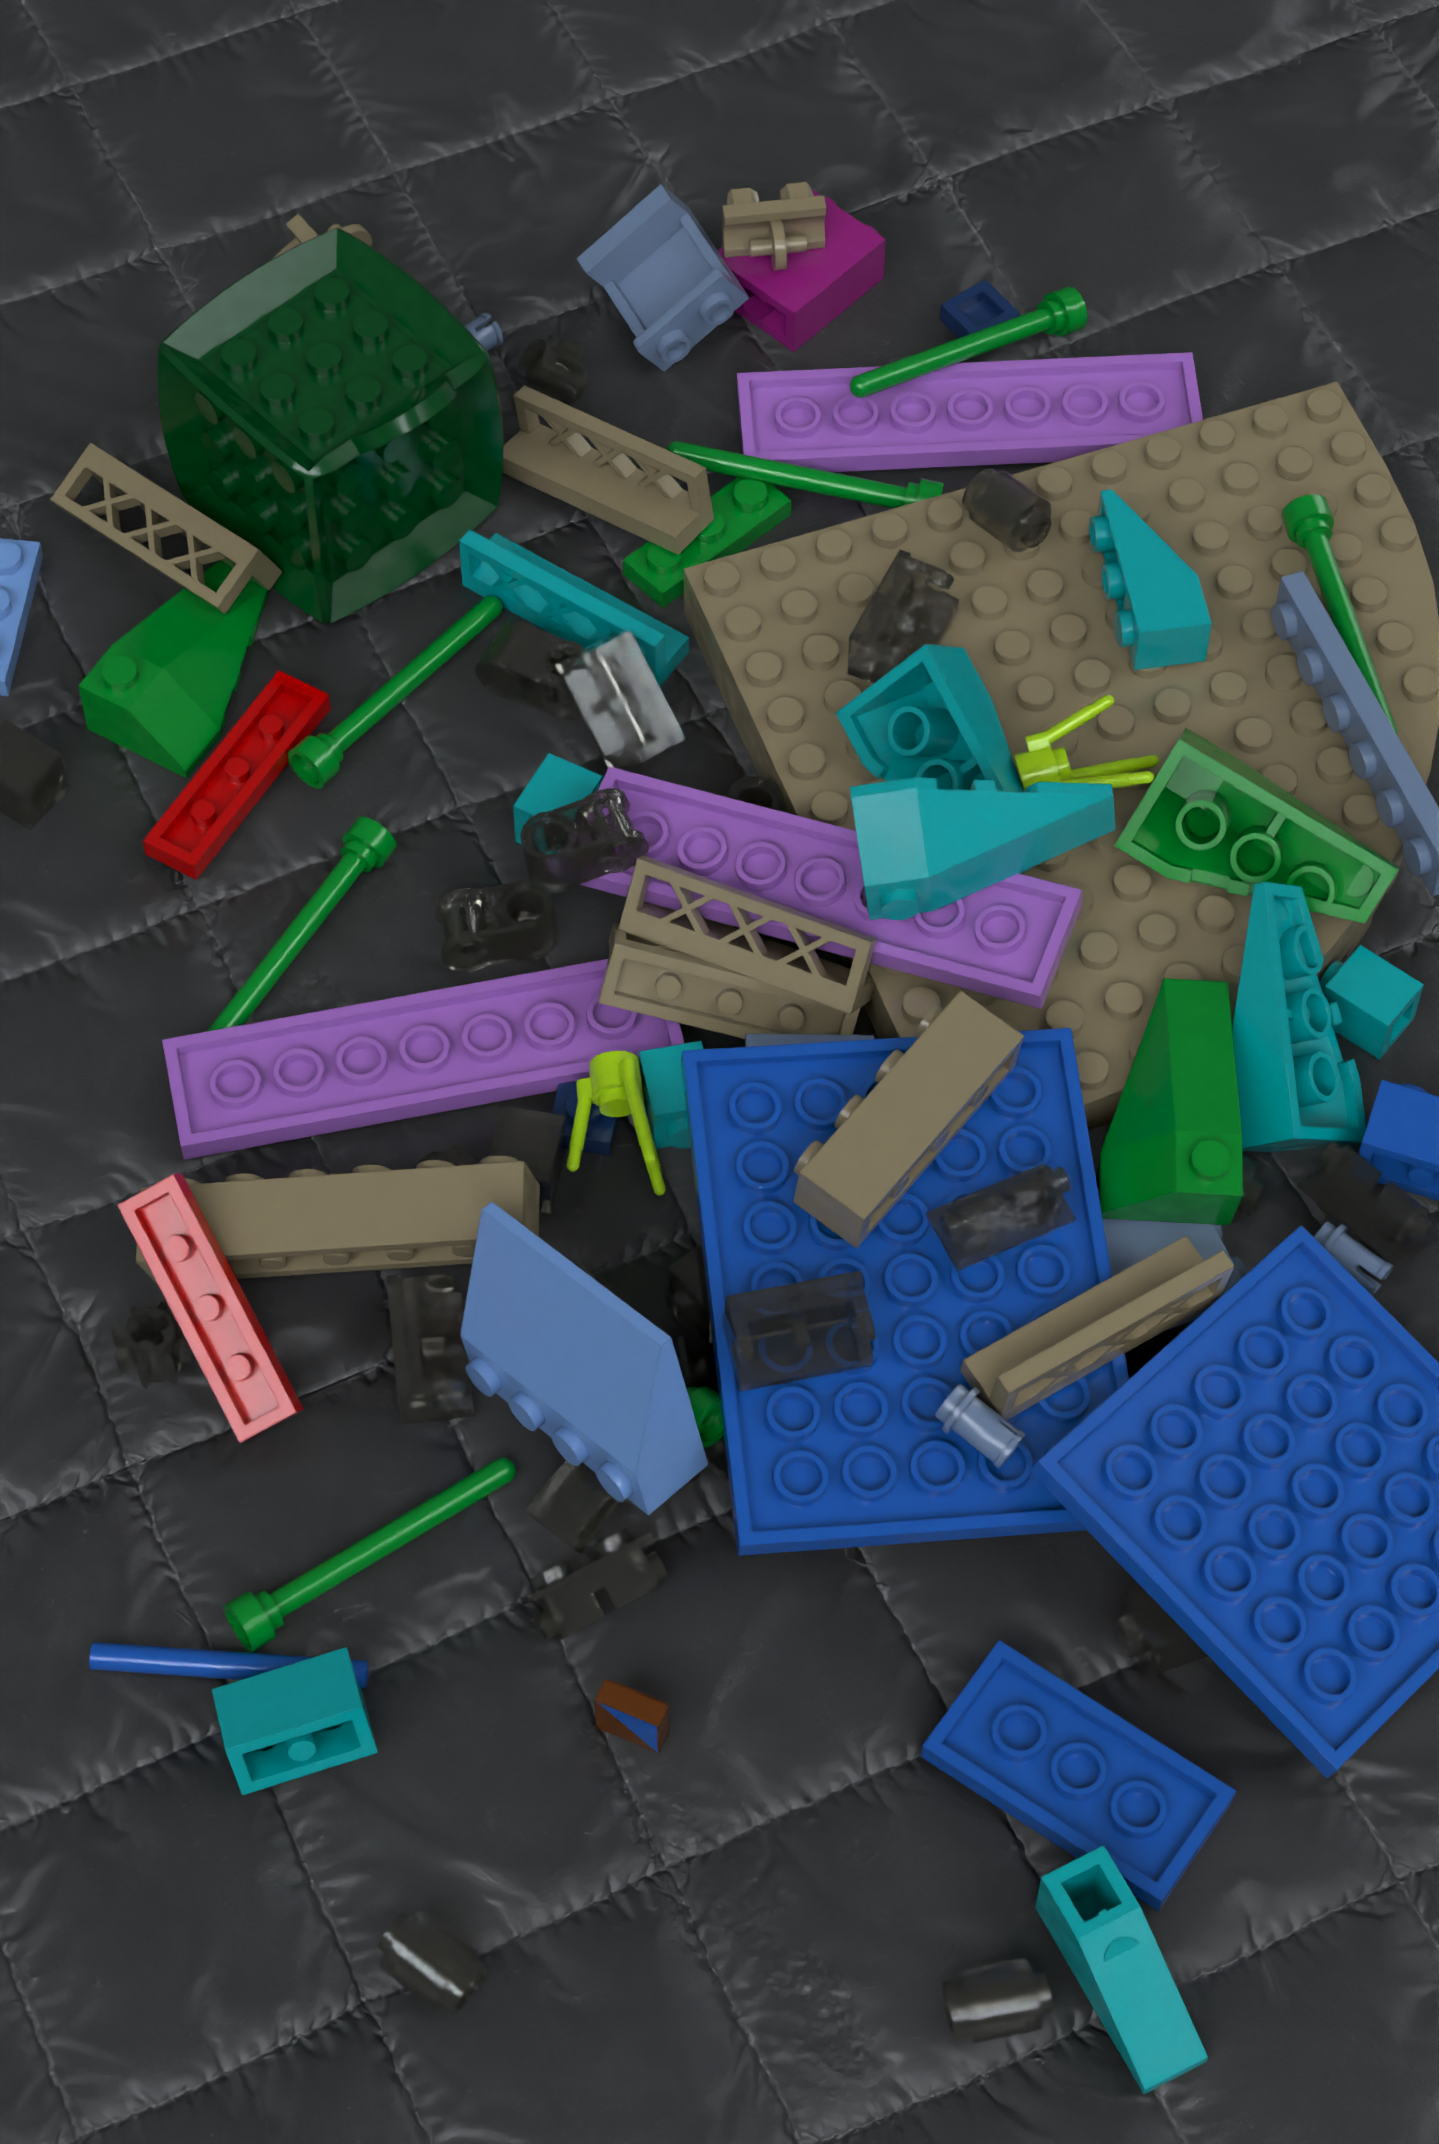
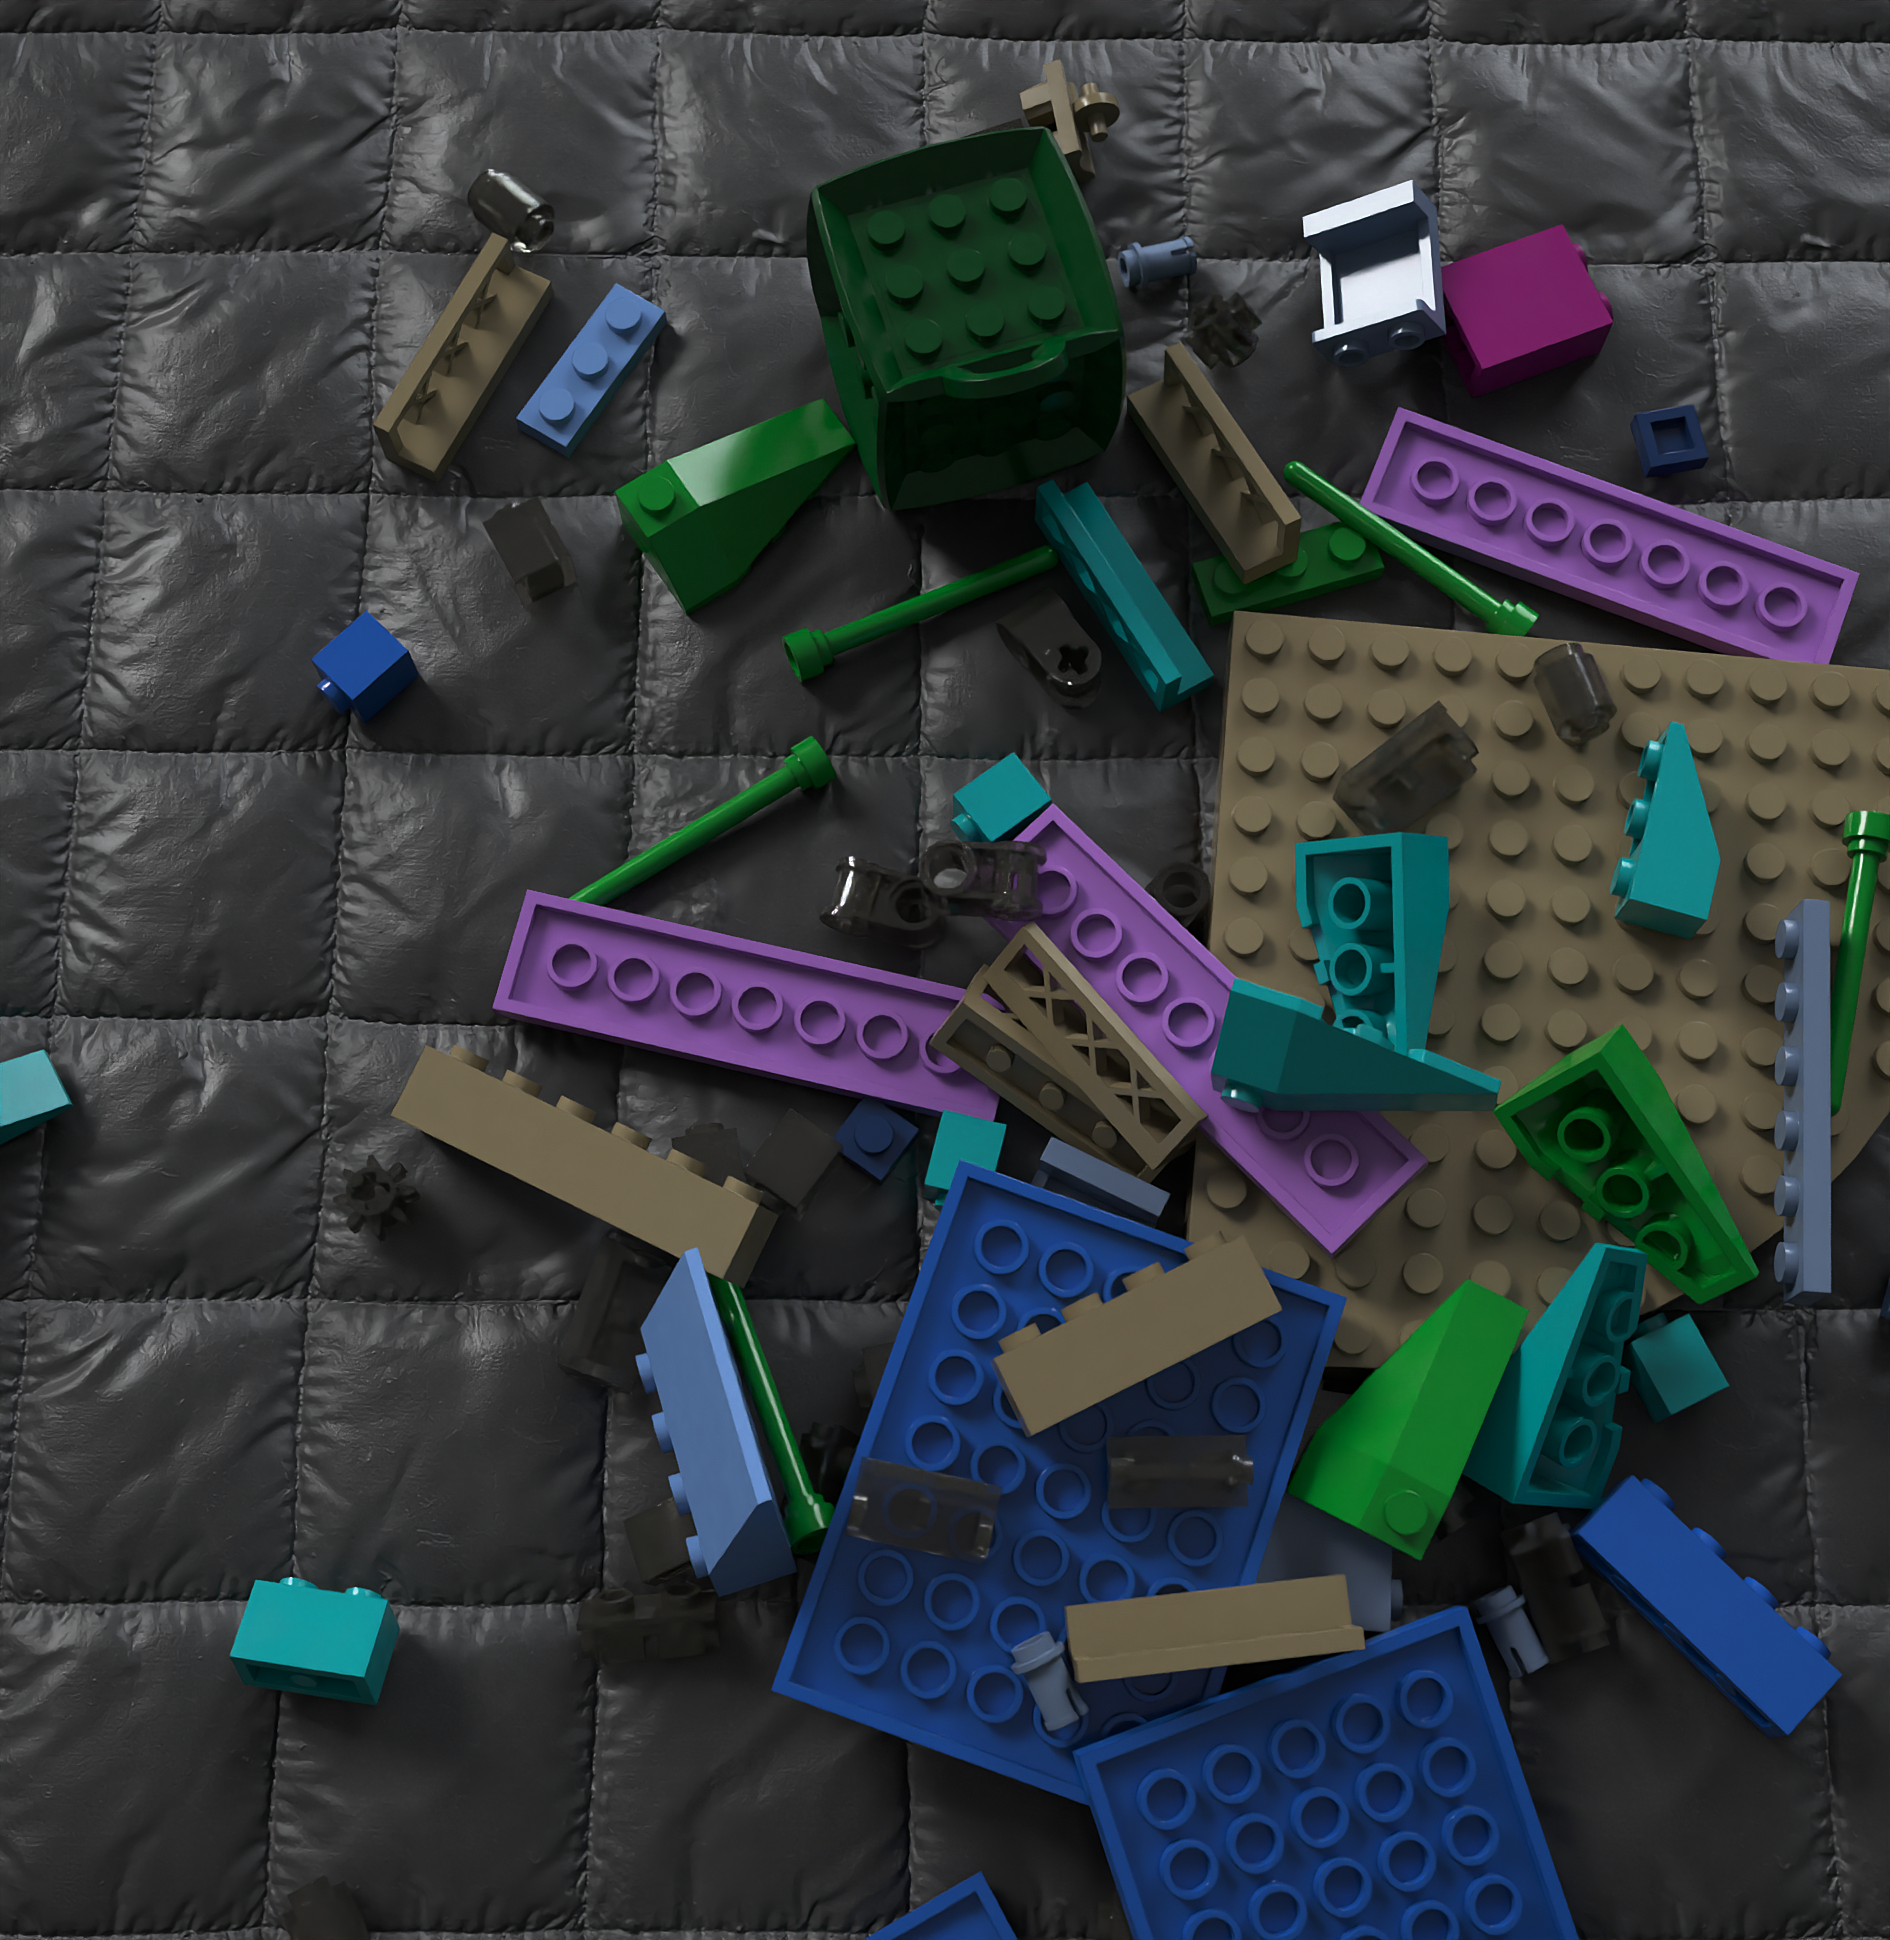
camera: 25 degrees right, 15 degrees up
(175, 516) = (798, 345): dark tan fence -> none
(195, 1661) = (292, 1540): blue piece -> none
(210, 1307) = (430, 1197): plate -> none
(236, 775) = (727, 637): red plate -> none
(259, 1615) = (342, 1512): green piece -> none
(618, 1092) = (907, 1137): lime plant -> none
(620, 701) = (1107, 725): clear smoke hinge -> none
(632, 1715) = (616, 1779): reddish brown tile -> none
(773, 226) = (1503, 270): dark tan hips -> none
(1046, 764) = (1462, 1004): lime plant -> none
(1057, 314) = (1749, 471): green piece -> none

